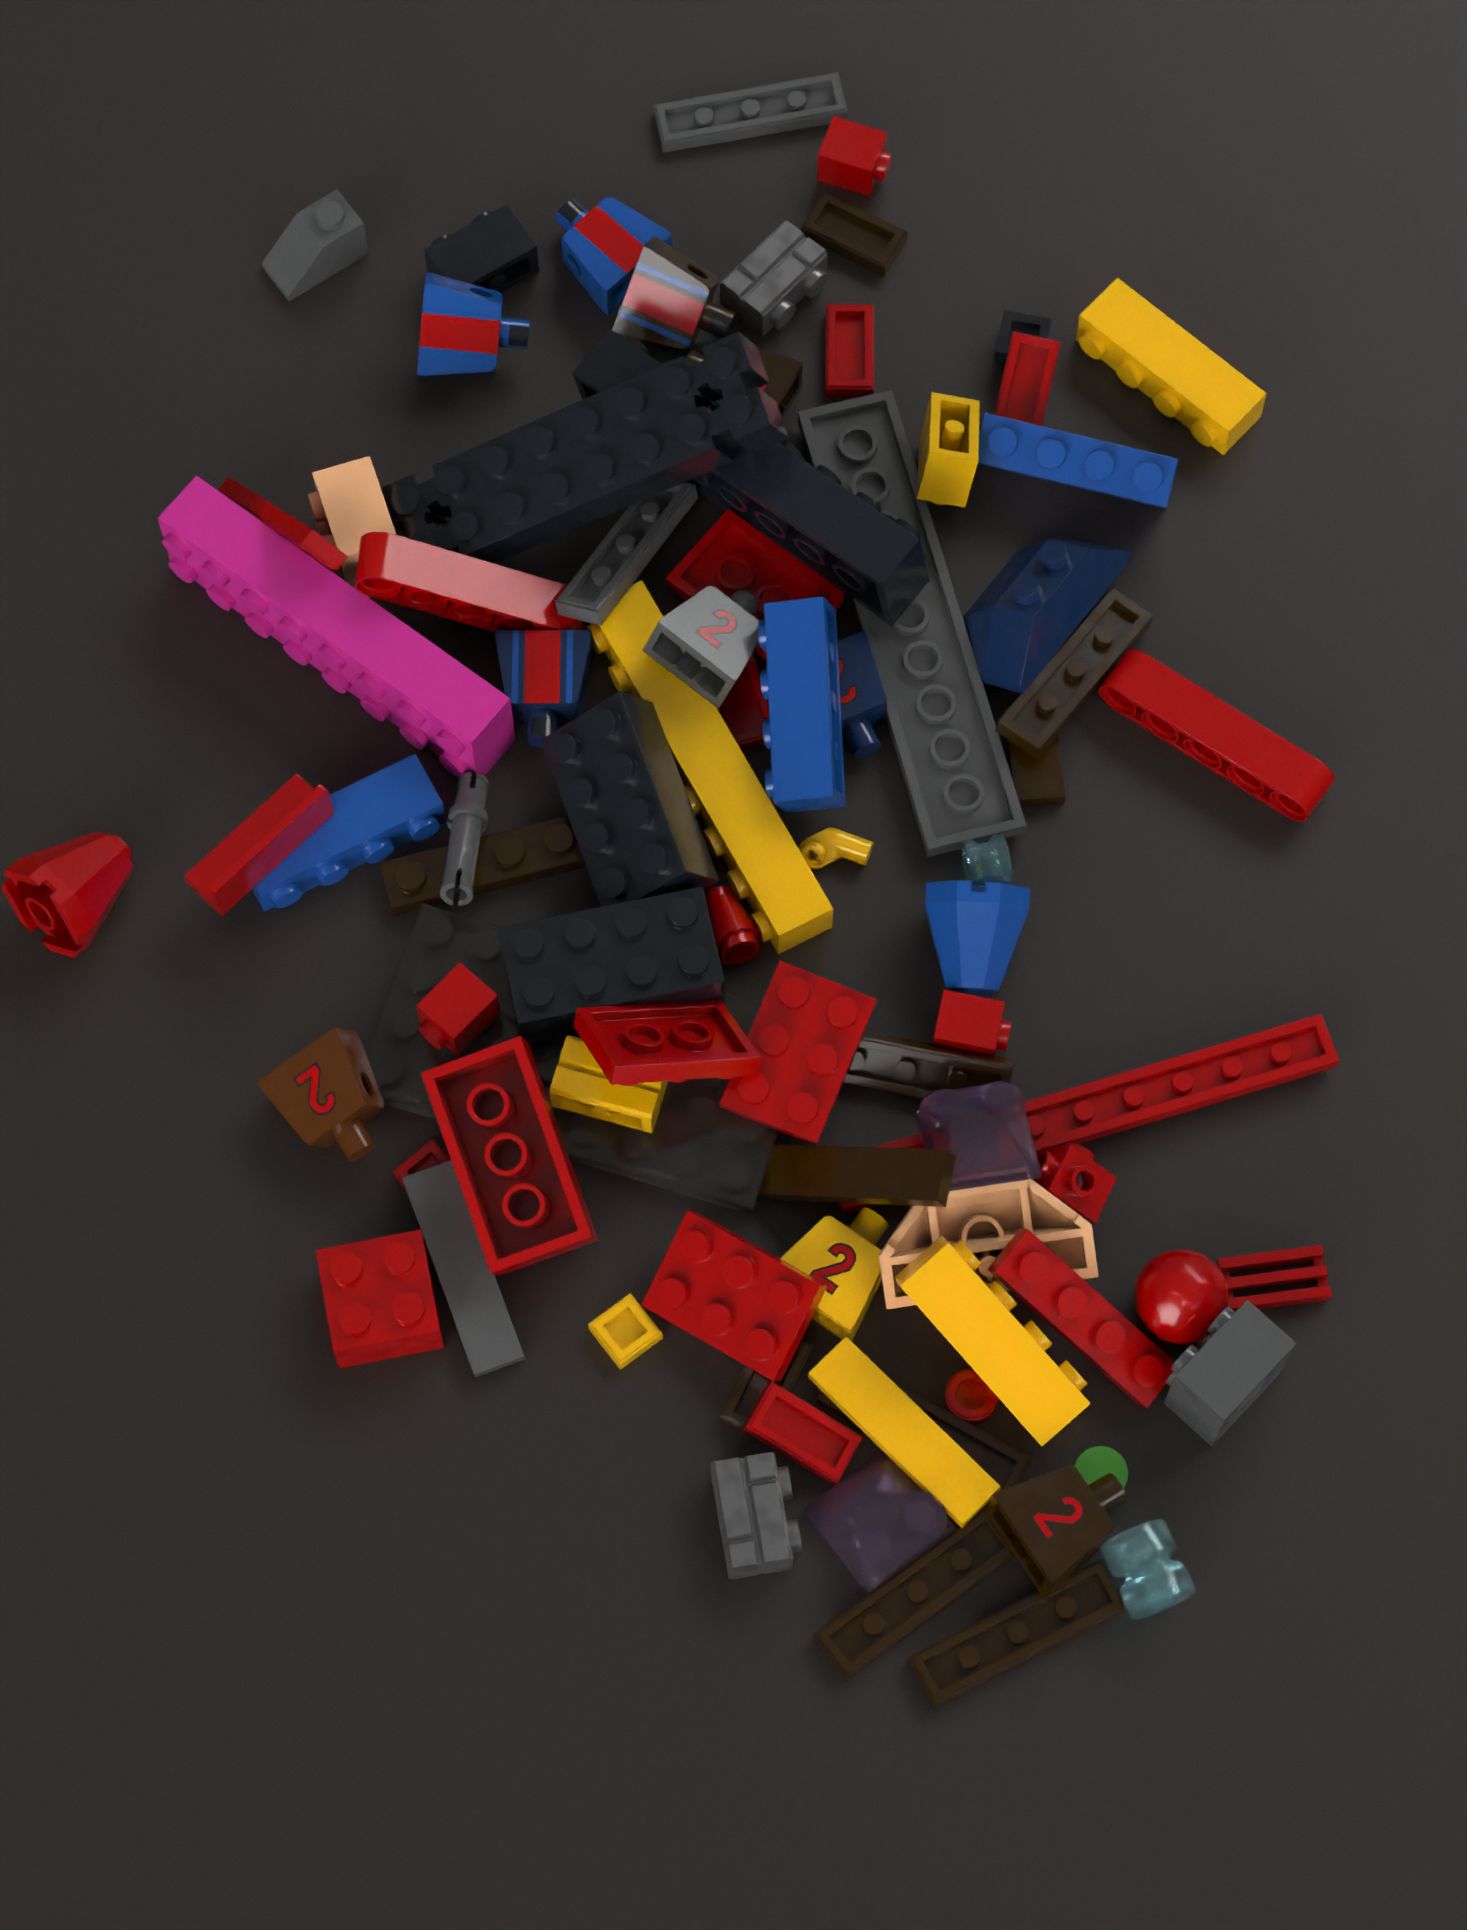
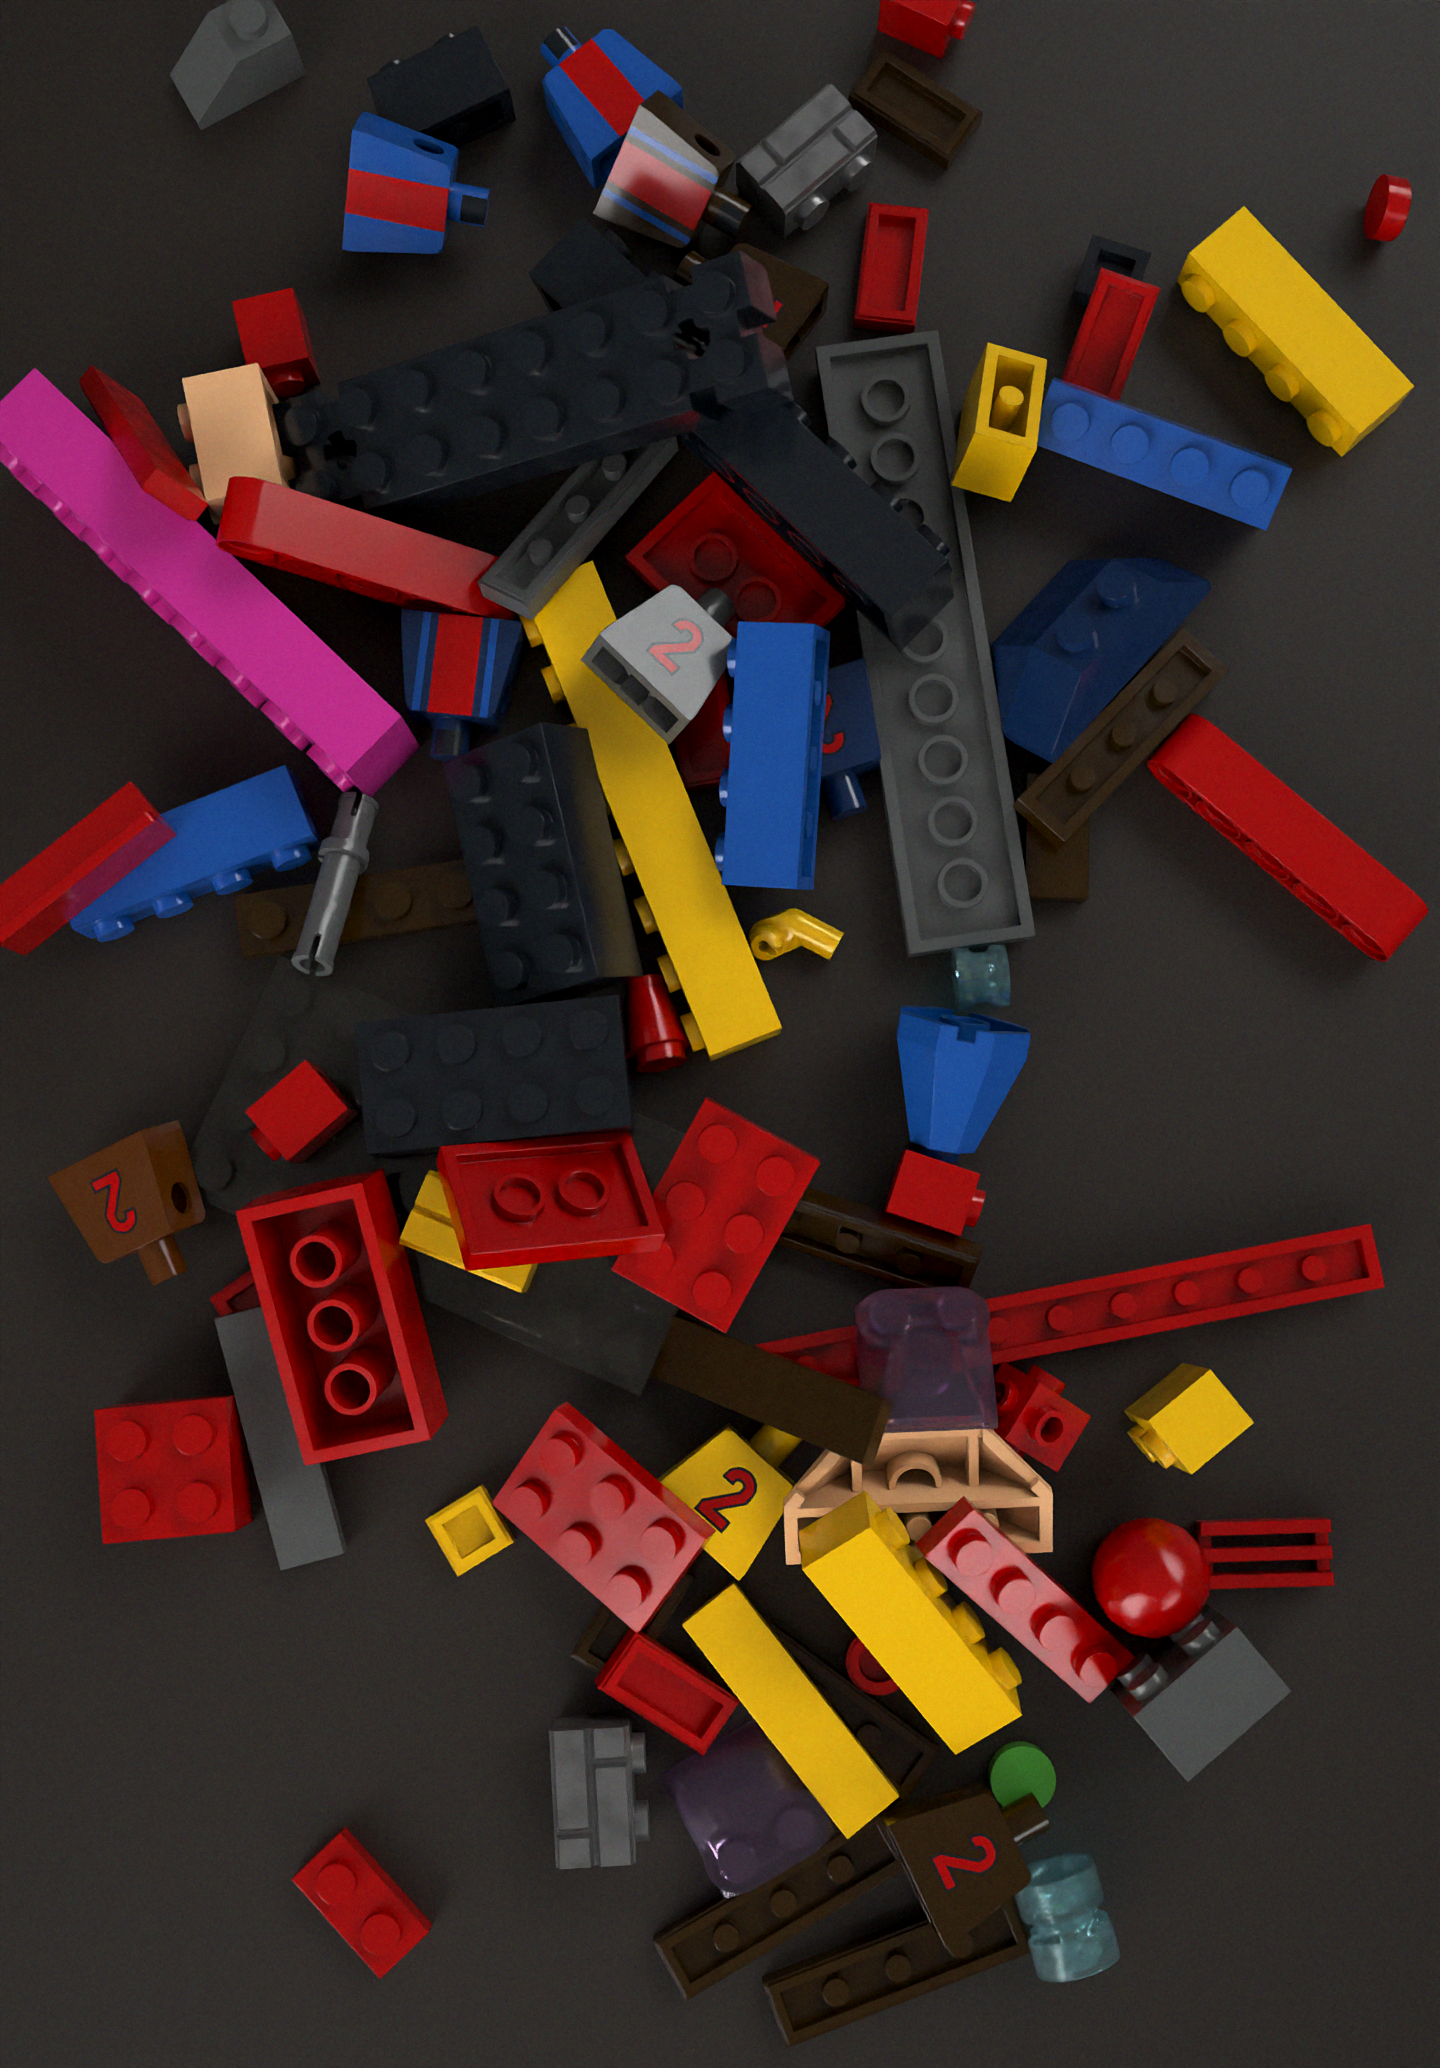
camera: 10 degrees right, 15 degrees up
(371, 435) = (278, 339): none -> red brick
(569, 1633) = (362, 1902): none -> red plate
(1192, 1167) = (1186, 1419): none -> yellow brick
(1231, 270) = (1387, 208): none -> red tile

